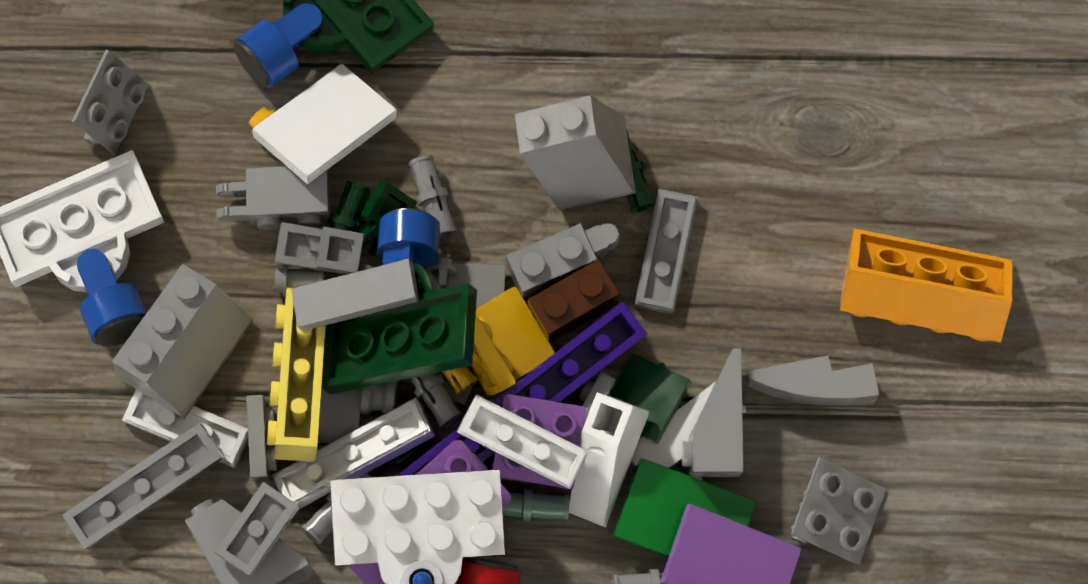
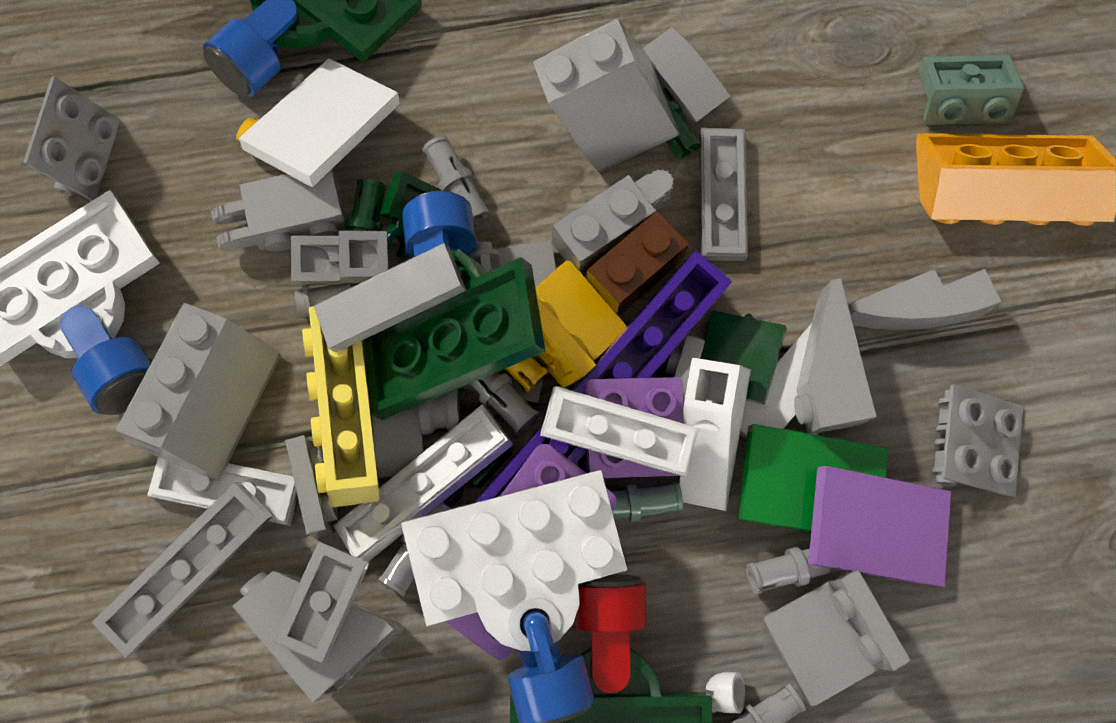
camera: 15 degrees left, 0 degrees up
(654, 136) = (685, 75): none -> light grey slope
(907, 197) = (970, 89): none -> sand green bracket

